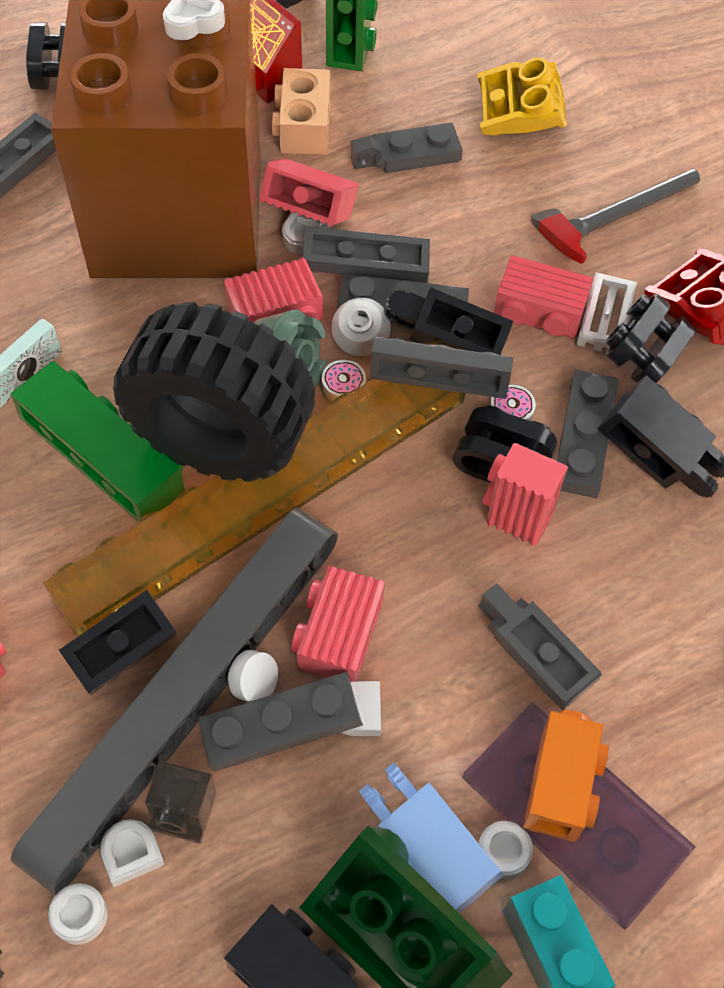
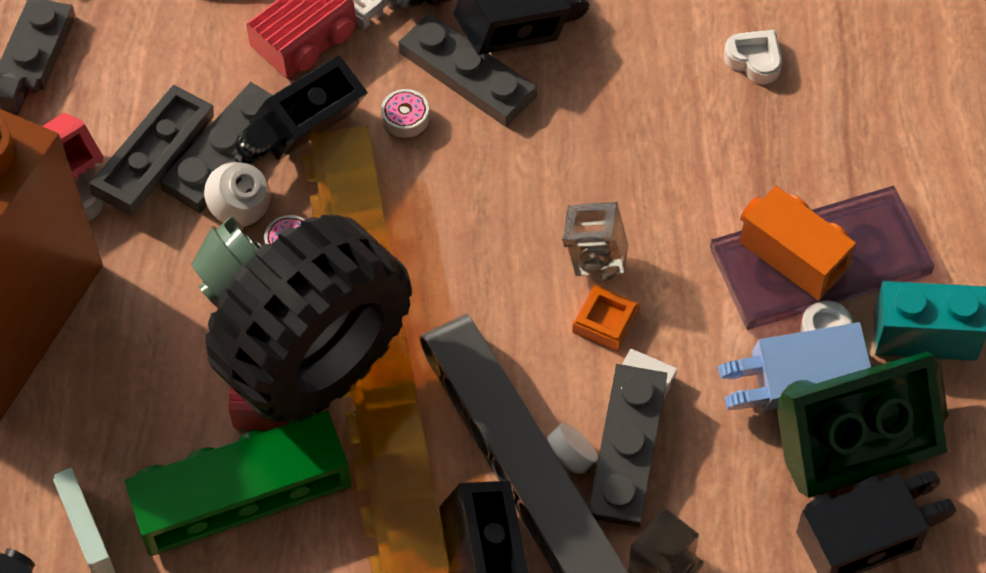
camera: 60 degrees left, 0 degrees up
(275, 291) = (157, 256): coral brick -> none
(339, 624) = (559, 355): coral brick -> none
(405, 650) = (606, 317): none -> orange tile
(440, 367) = (354, 137): dark grey plate -> none
(464, 600) = (596, 252): none -> clear smoke brick
(493, 433) = (453, 138): black brick -> none
(523, 492) = (519, 140): coral brick -> none
(539, 647) = (671, 207): dark grey hinge -> none

